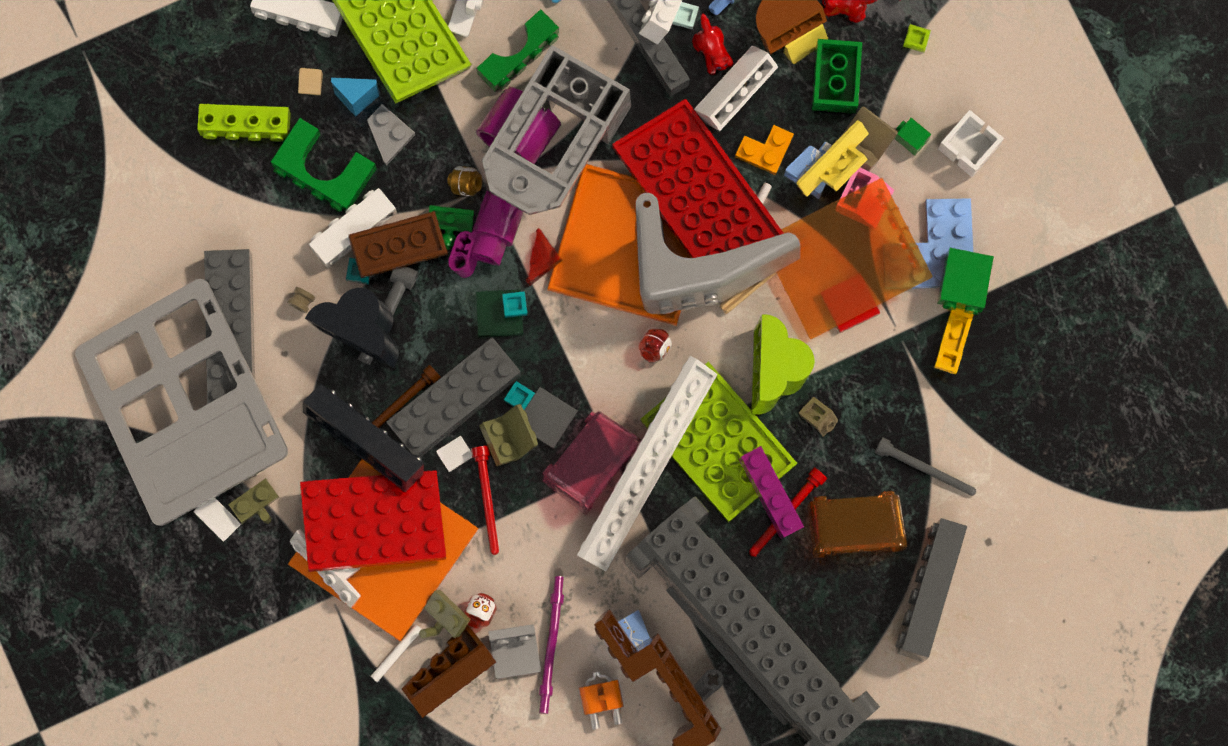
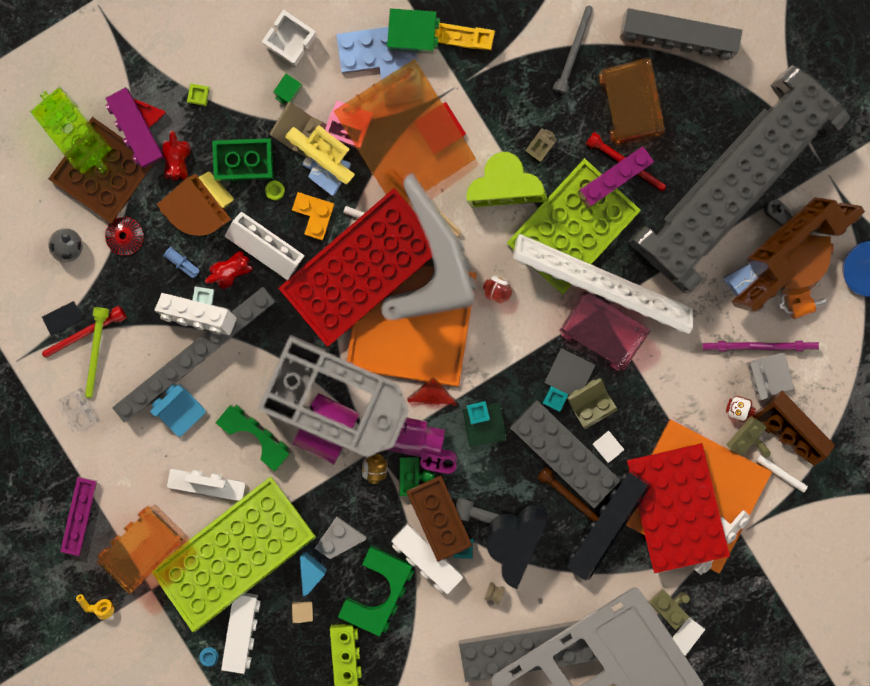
camera: 95 degrees left, 10 degrees up
(481, 456) = (610, 424): red piece -> none
(643, 706) = (809, 262): none -> dark orange brick
(798, 109) = (274, 190): none -> lime tile

